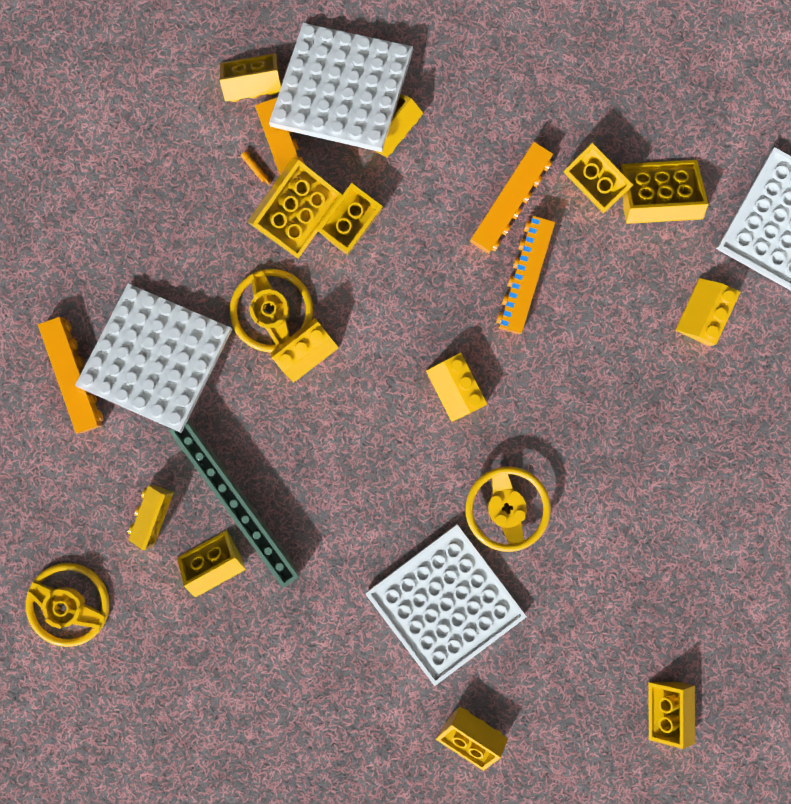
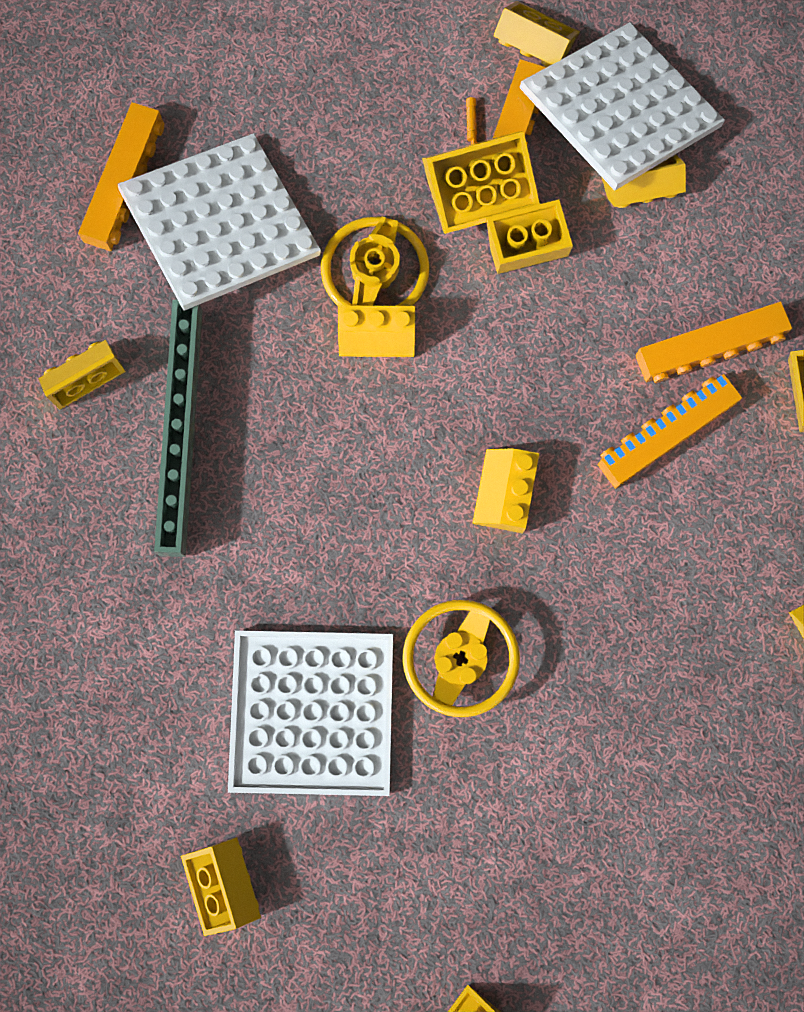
camera: 30 degrees right, 10 degrees down
(210, 564) = (99, 472): yellow slope -> none

